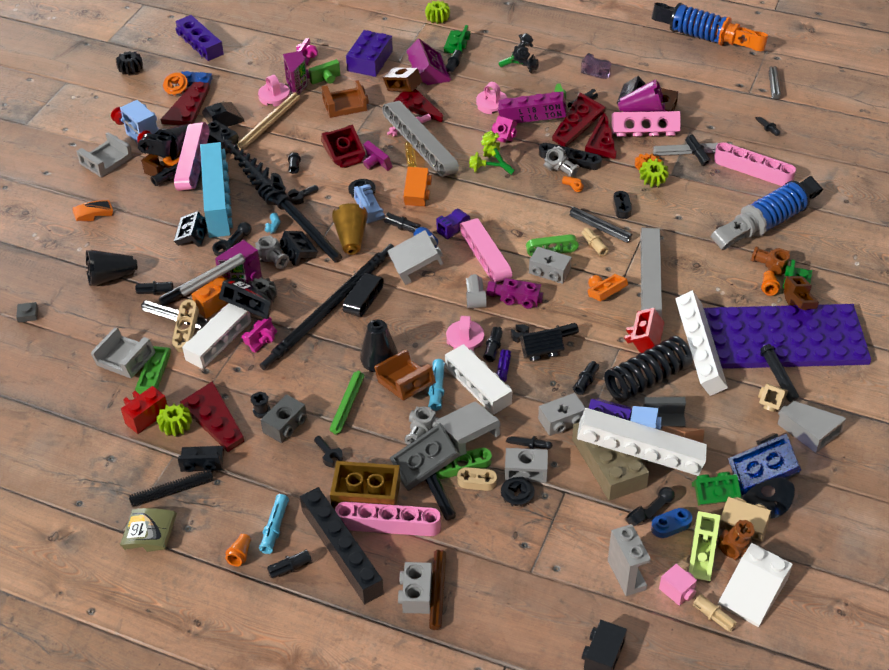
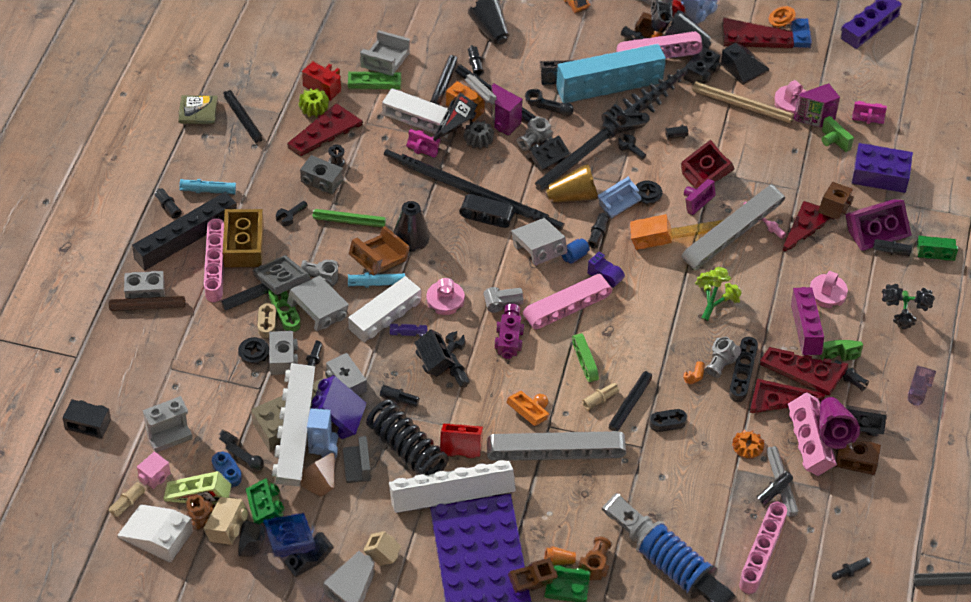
camera: 80 degrees right, 5 degrees up
(182, 318) = (436, 87): tan beam -> none
(201, 458) = (275, 129): black bracket -> none
(237, 552) = (178, 168): orange cone -> none
(275, 221) = (580, 131): medium azure arm -> none
(345, 101) = (792, 157): dark orange panel -> none
(493, 344) = (435, 318): black axle -> none
(505, 128) = (768, 300): dark pink brick -> none
(550, 265) = (552, 357): light grey brick -> none
(653, 172) = (721, 444): lime gear -> none
(779, 372) = (418, 557): black axle -> none

